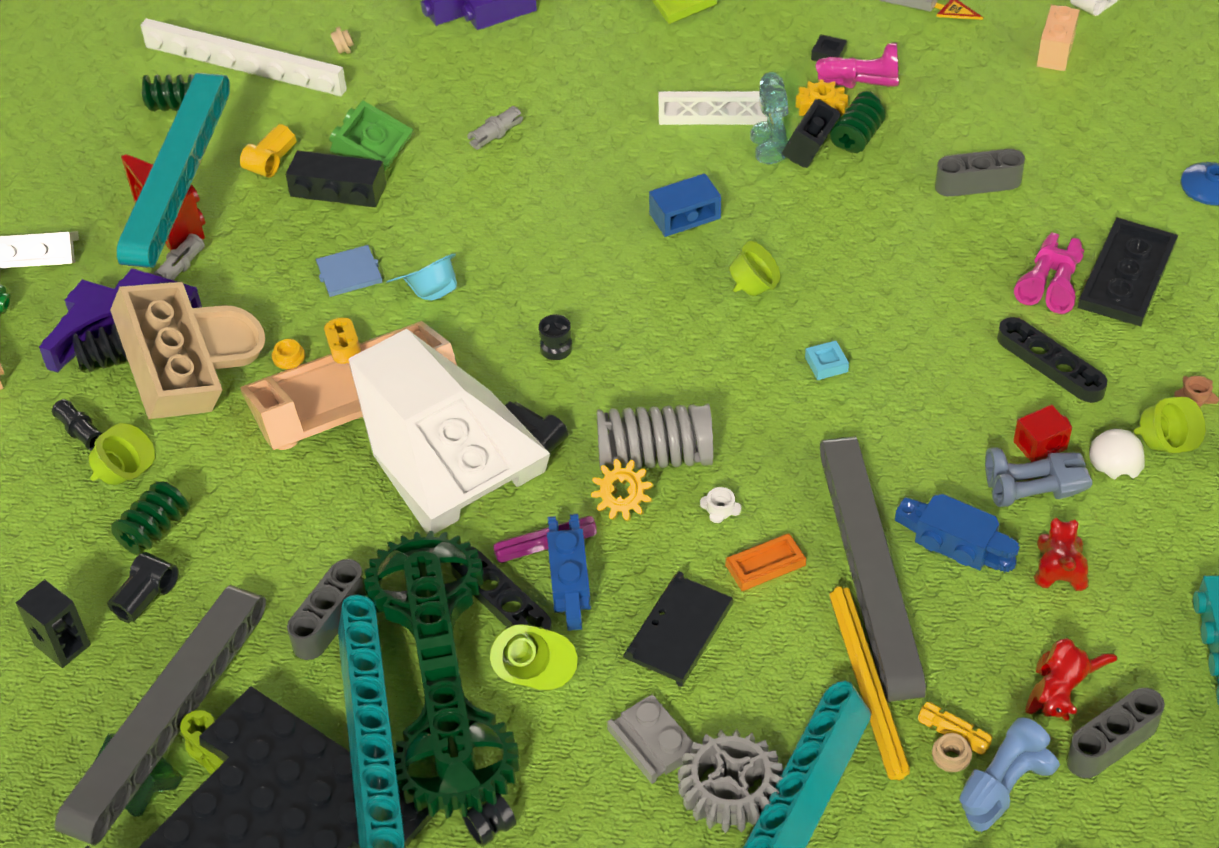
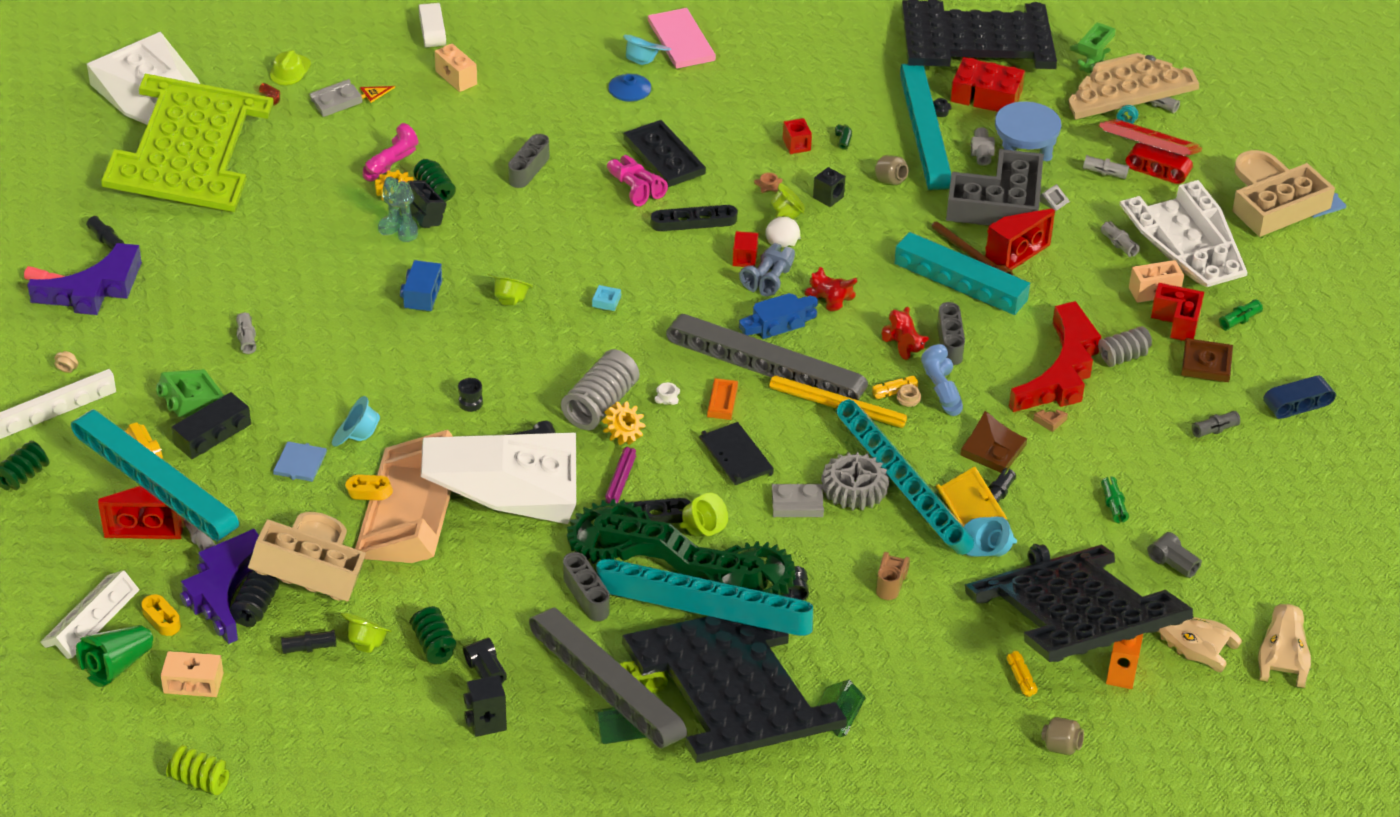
camera: 60 degrees left, 5 degrees down
(49, 291) = (165, 612): none -> yellow beam
(288, 354) = (351, 518): yellow plate -> none
(568, 571) = (659, 472): blue hinge -> none
(709, 108) = (346, 231): white fence -> none
(828, 47) = (350, 159): black plate -> none

